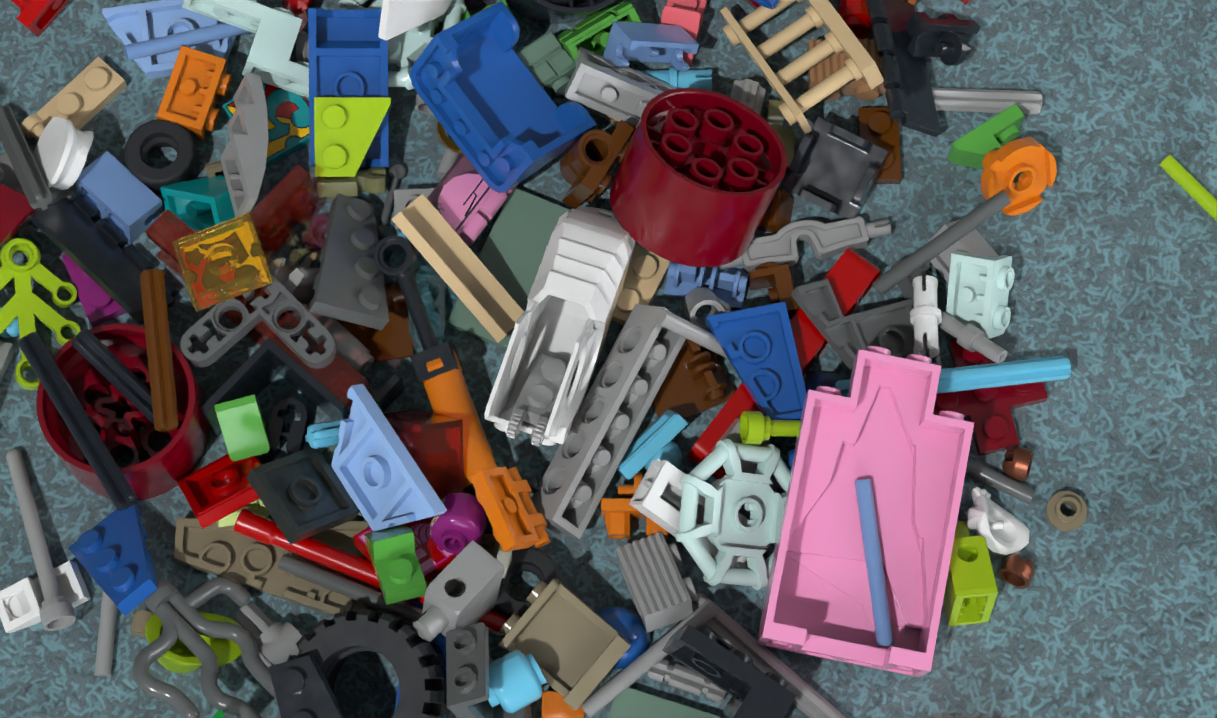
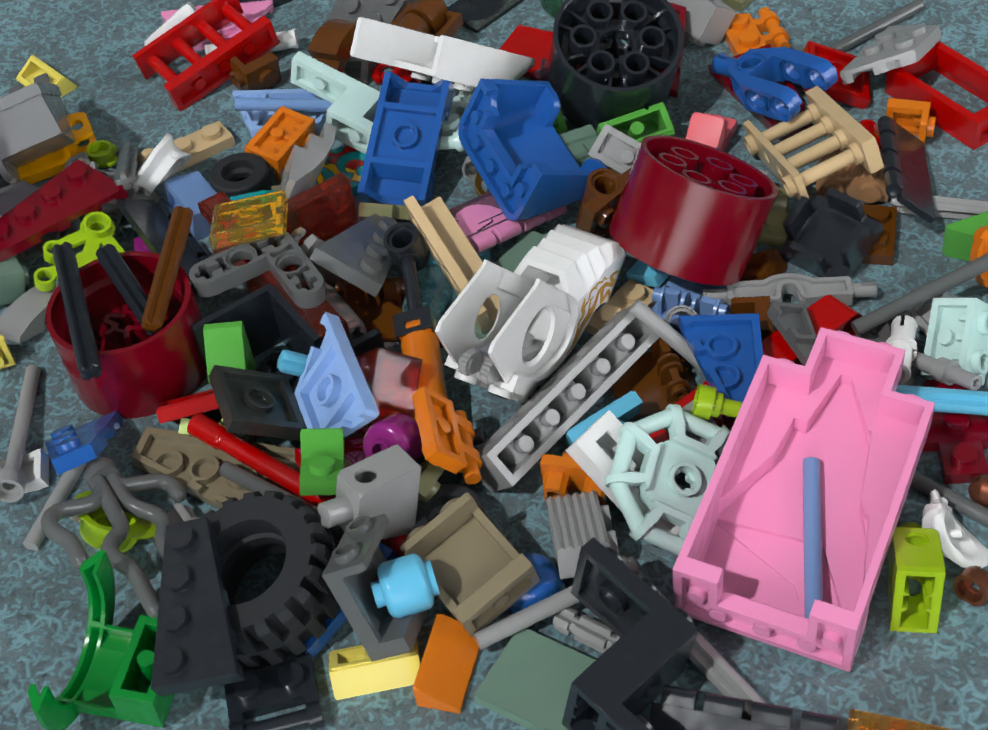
camera: 20 degrees right, 25 degrees down
(345, 132) = (391, 165): lime wing -> none
(649, 44) = (657, 123): medium blue hinge -> none
(940, 37) = (945, 154): black hips -> none

